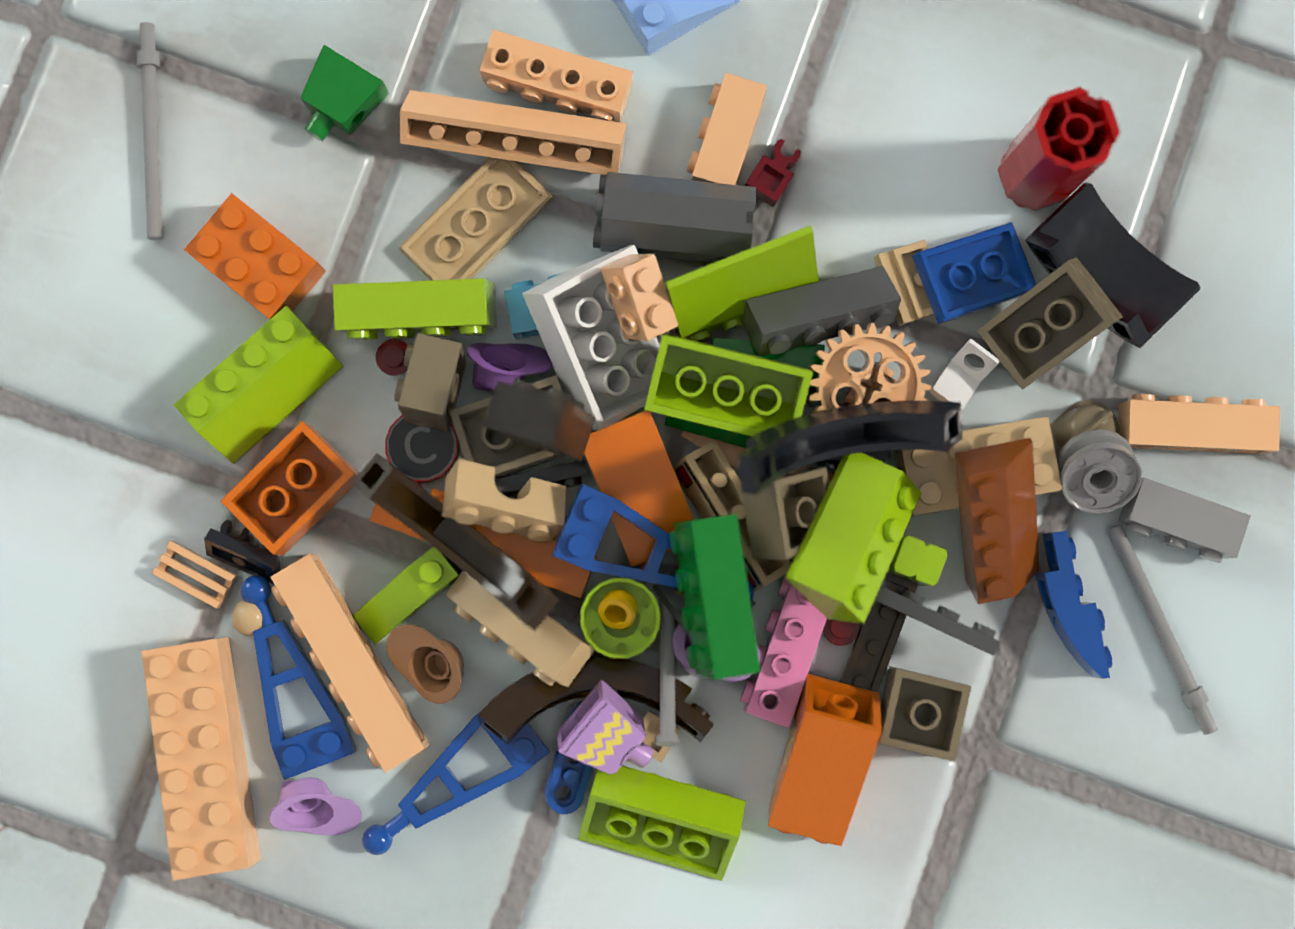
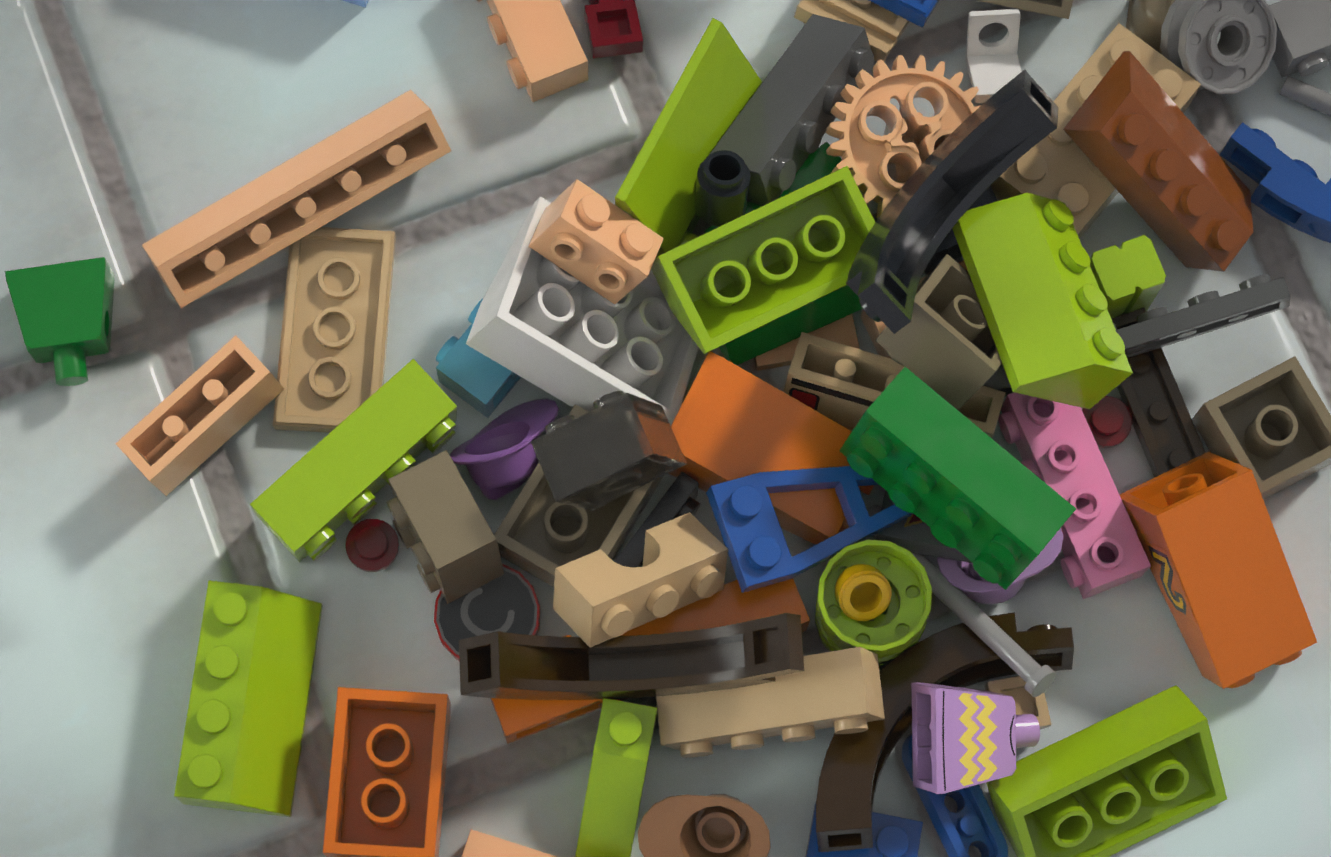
camera: 45 degrees left, 10 degrees down
(254, 258) = (123, 566): orange brick -> none
(359, 211) = (200, 416): none -> light nougat brick
(555, 77) = (290, 104): light nougat brick -> none
(673, 217) = (559, 132): dark grey brick -> none
(737, 325) = (722, 188): none -> black brick

